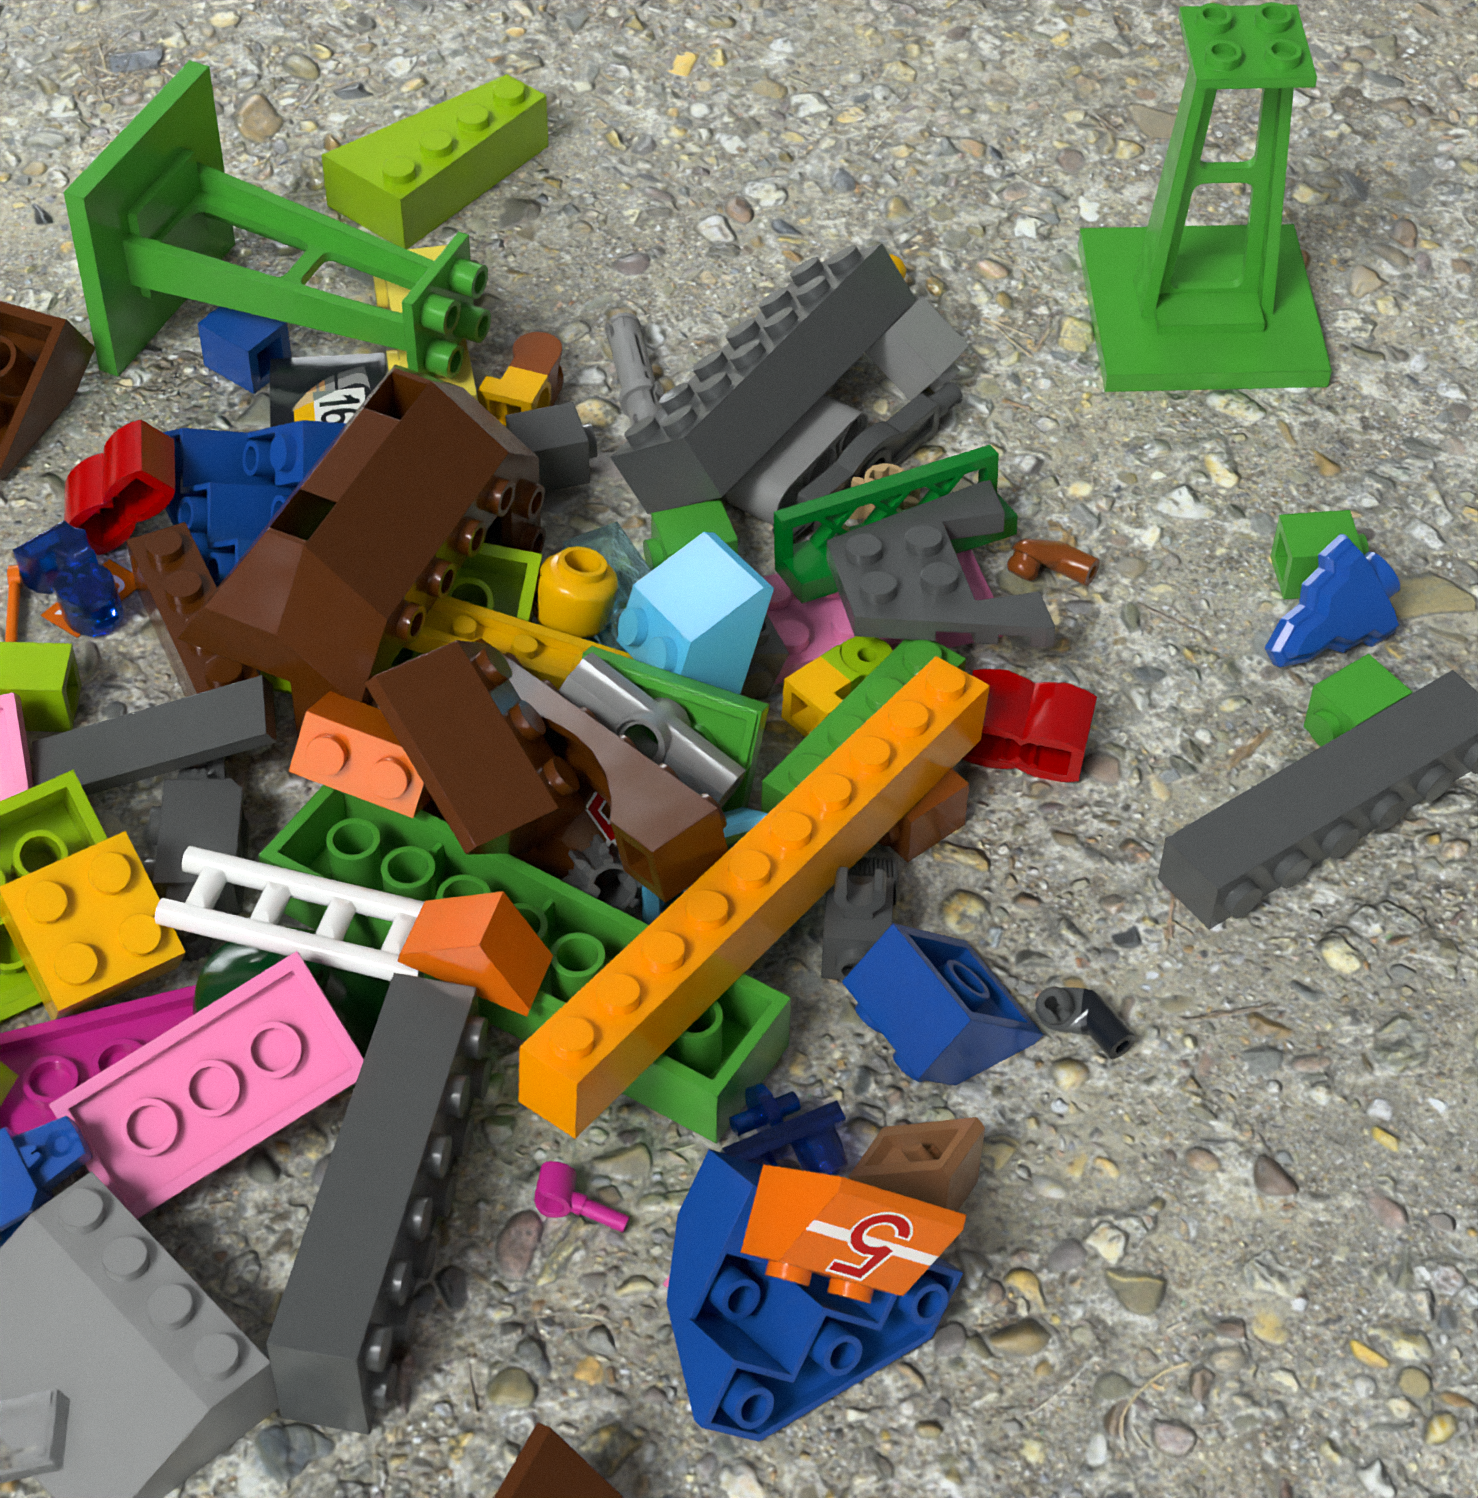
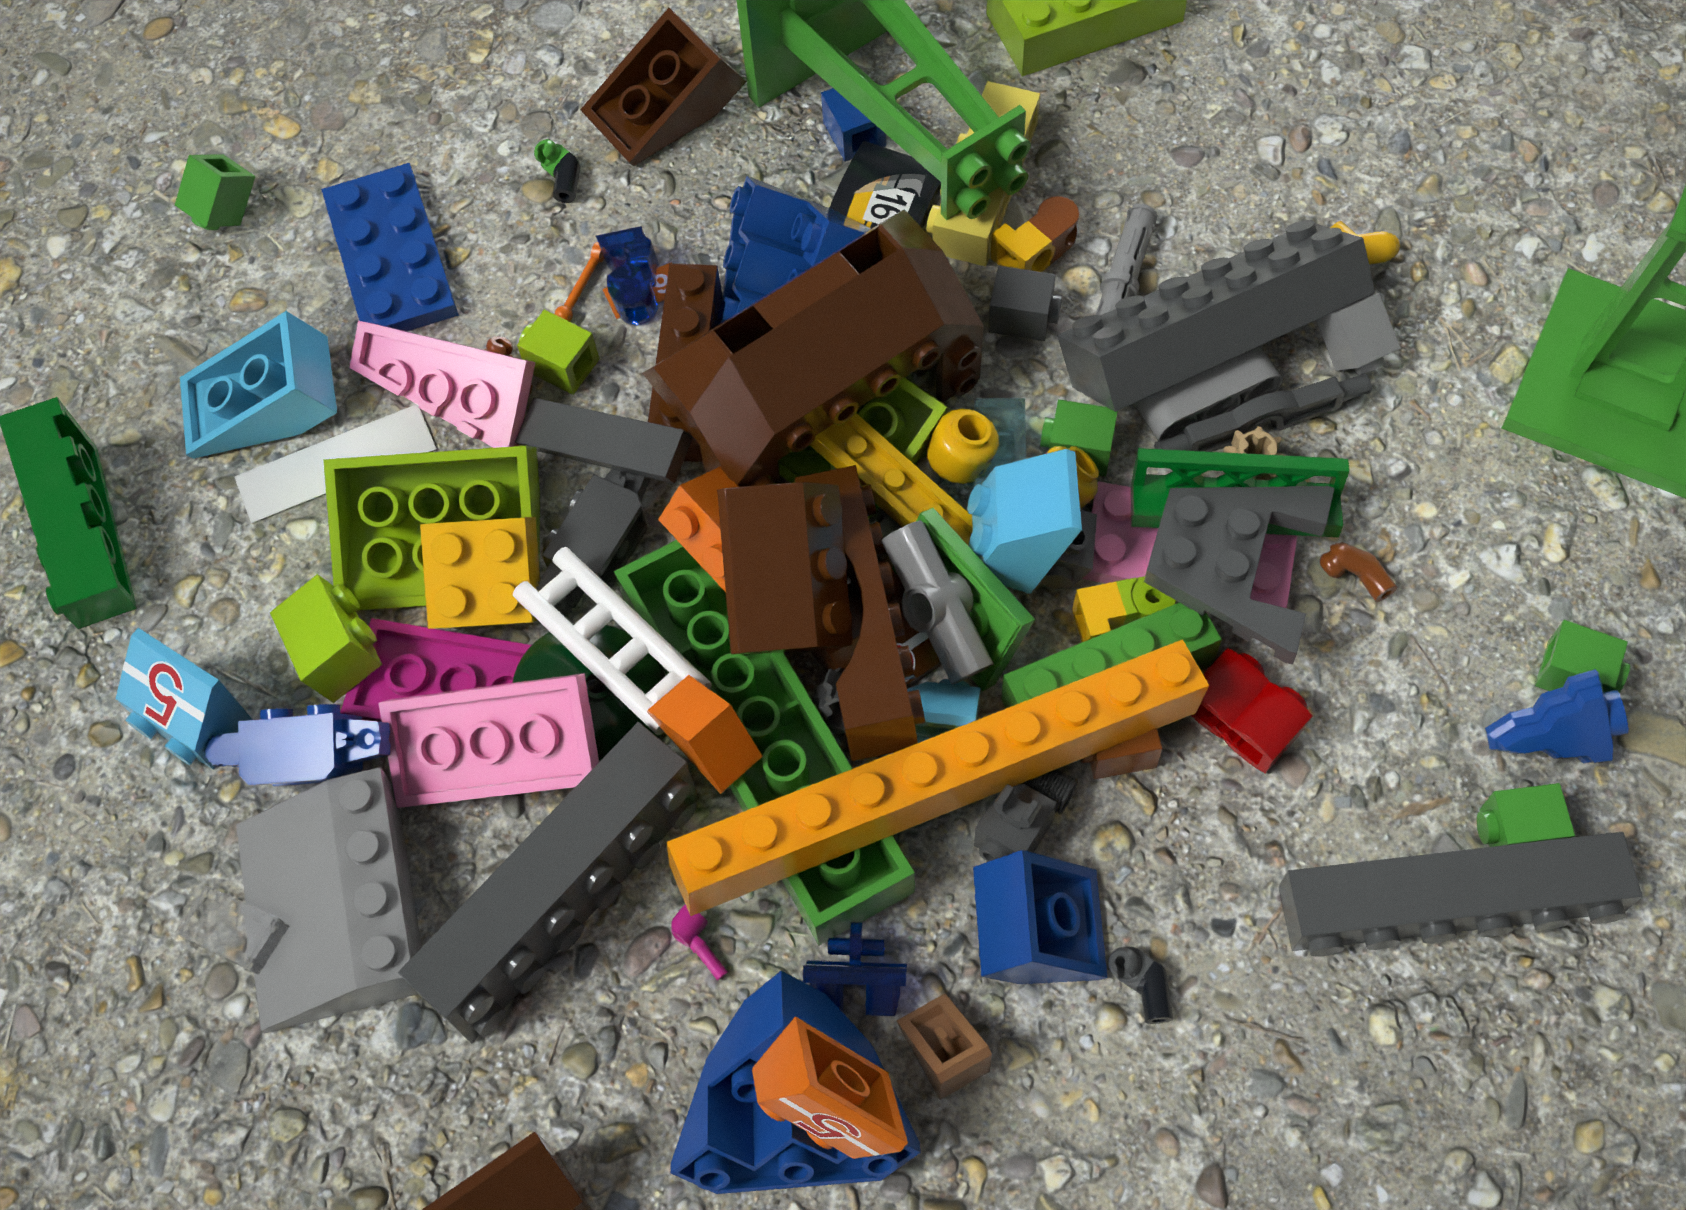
camera: 35 degrees right, 15 degrees up
(121, 485) = (694, 213): red brick -> none

